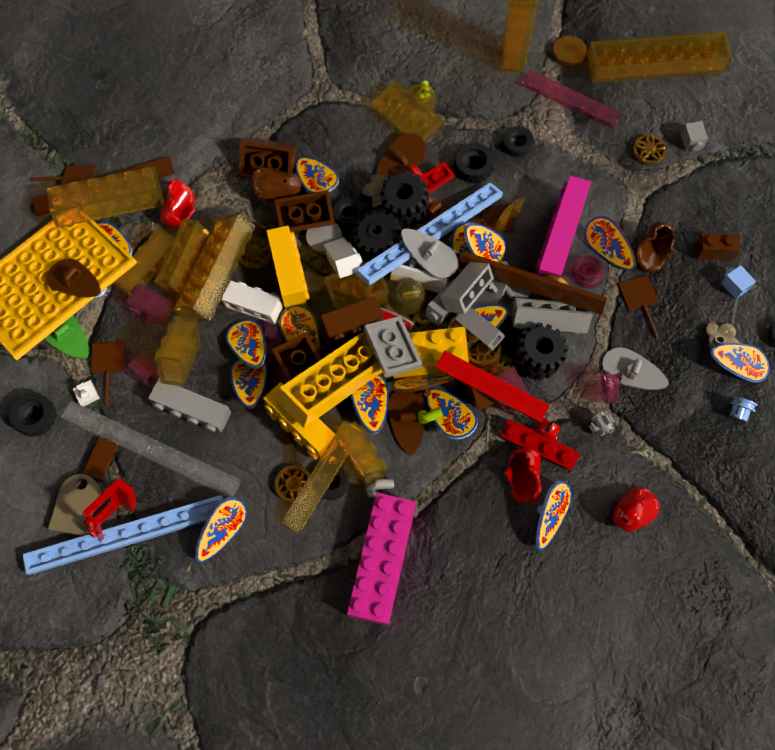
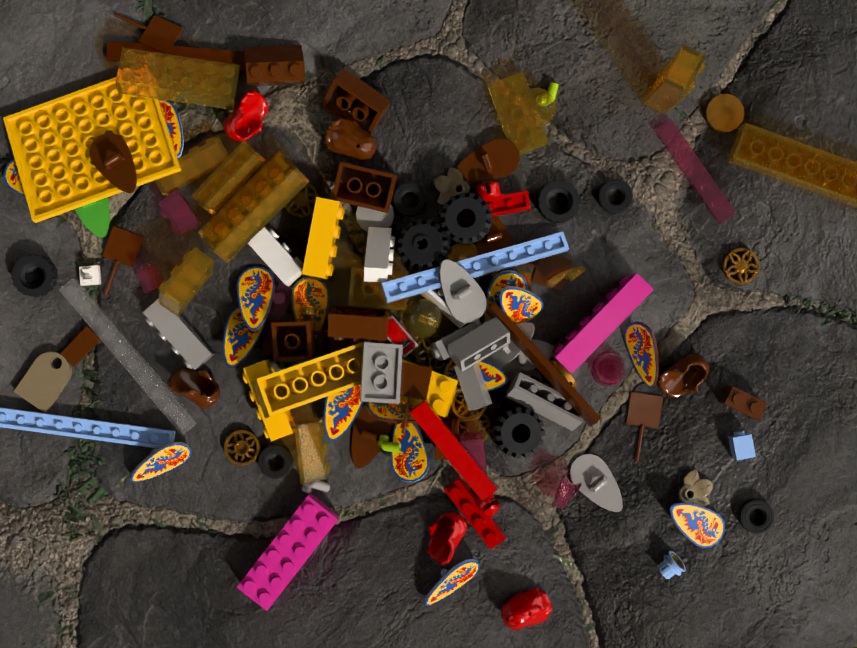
camera: 25 degrees right, 20 degrees up
(118, 494) = (69, 398): red window -> none
(187, 160) = (274, 65): none -> reddish brown slope
(228, 445) = (195, 386): none -> reddish brown piece
(316, 175) = (394, 146): shield -> none
(321, 476) = (266, 460): clear yellow tile -> none
(428, 346) = (414, 384): none -> reddish brown piece
(602, 423) = (538, 521): light grey gear -> none
(694, 136) = (792, 274): light grey brick -> none

